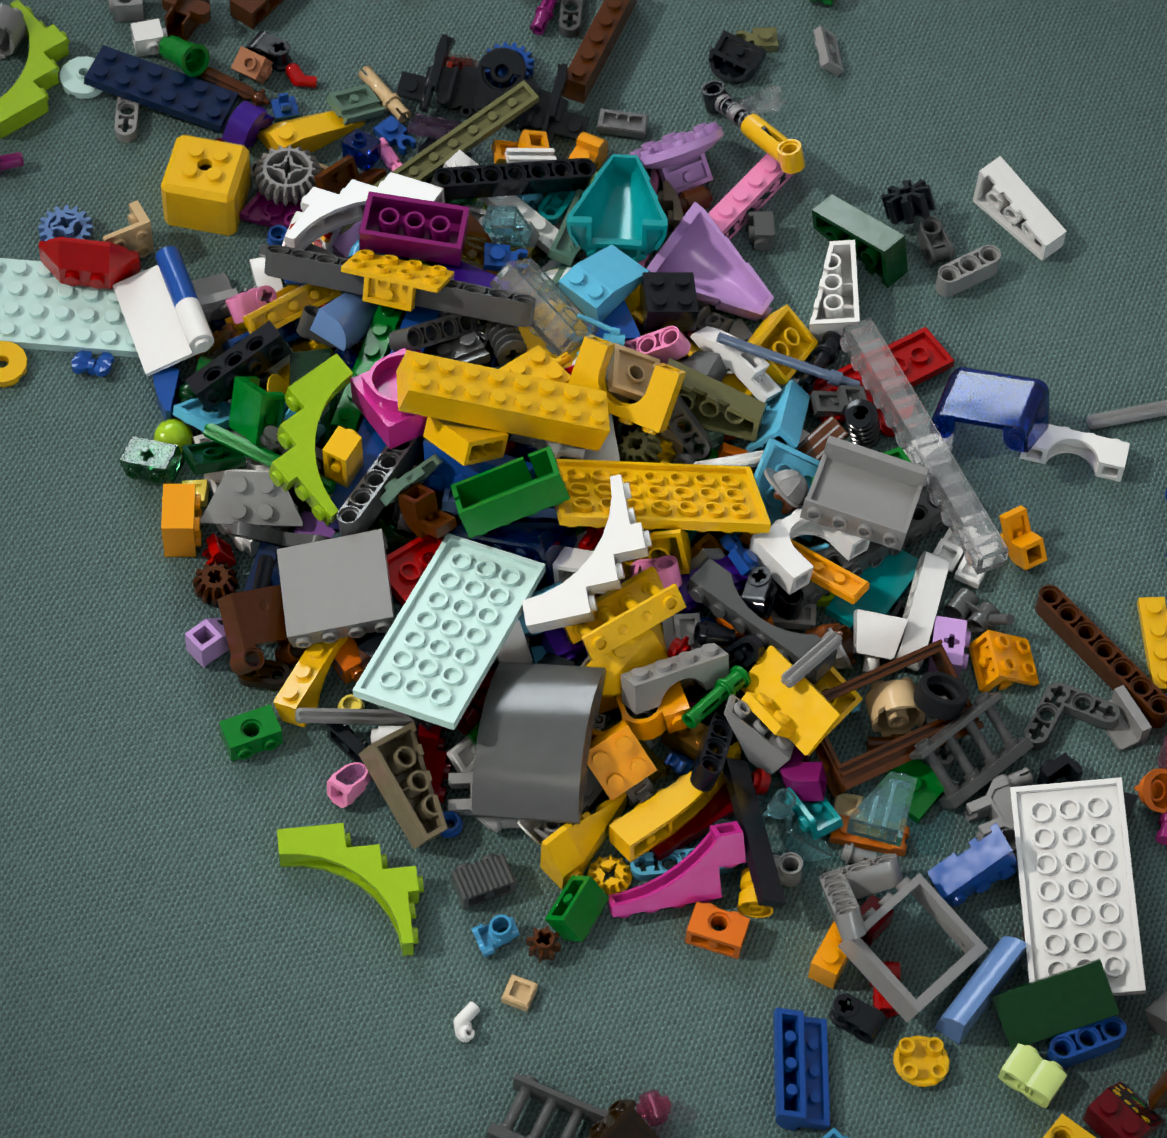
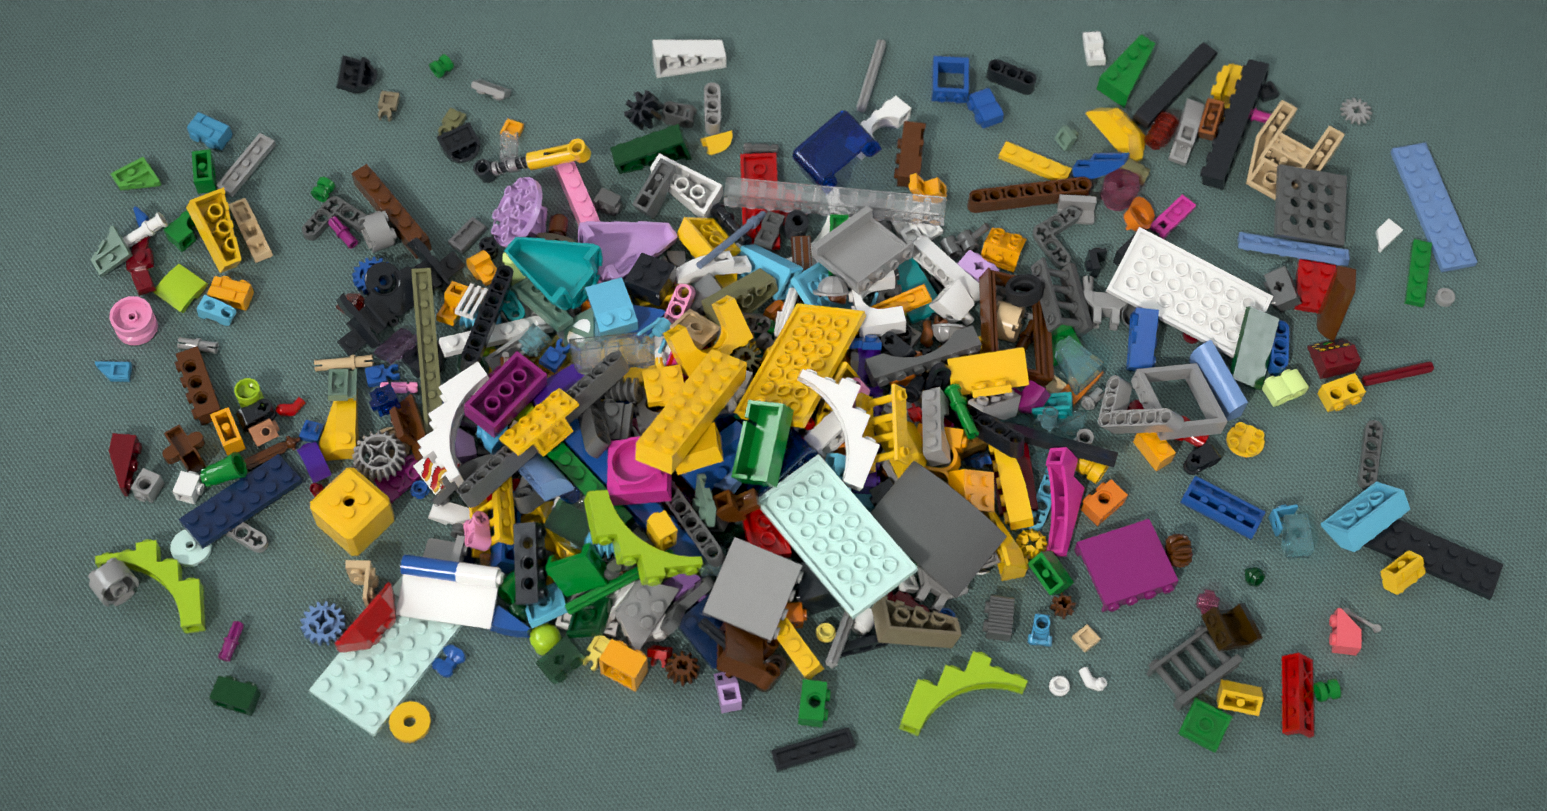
camera: 60 degrees left, 5 degrees up
(197, 763) = (813, 749): none -> black tile
(230, 34) = (227, 431): none -> light orange brick
(288, 26) = (248, 392): none -> lime wheel
(348, 784) = (886, 662): bright pink rock -> none
(435, 989) = (1059, 686): none -> white plate
(561, 37) = (377, 231): none -> light grey brick
(619, 145) = (489, 243): none -> black wheel
(644, 991) = (1127, 565): none -> magenta panel
(702, 1041) = (1179, 550): none -> reddish brown gear
(761, 781) = (1020, 419): red plate -> none
(795, 96) = (512, 127): none -> light orange tile
(800, 262) = (655, 189): none -> dark grey slope
(811, 659) = (975, 342): light grey axle -> none
(924, 297) = (717, 143): none -> yellow brick
(953, 346) = (761, 148): none -> dark grey axle
(1061, 497) = (910, 152): none -> reddish brown wedge

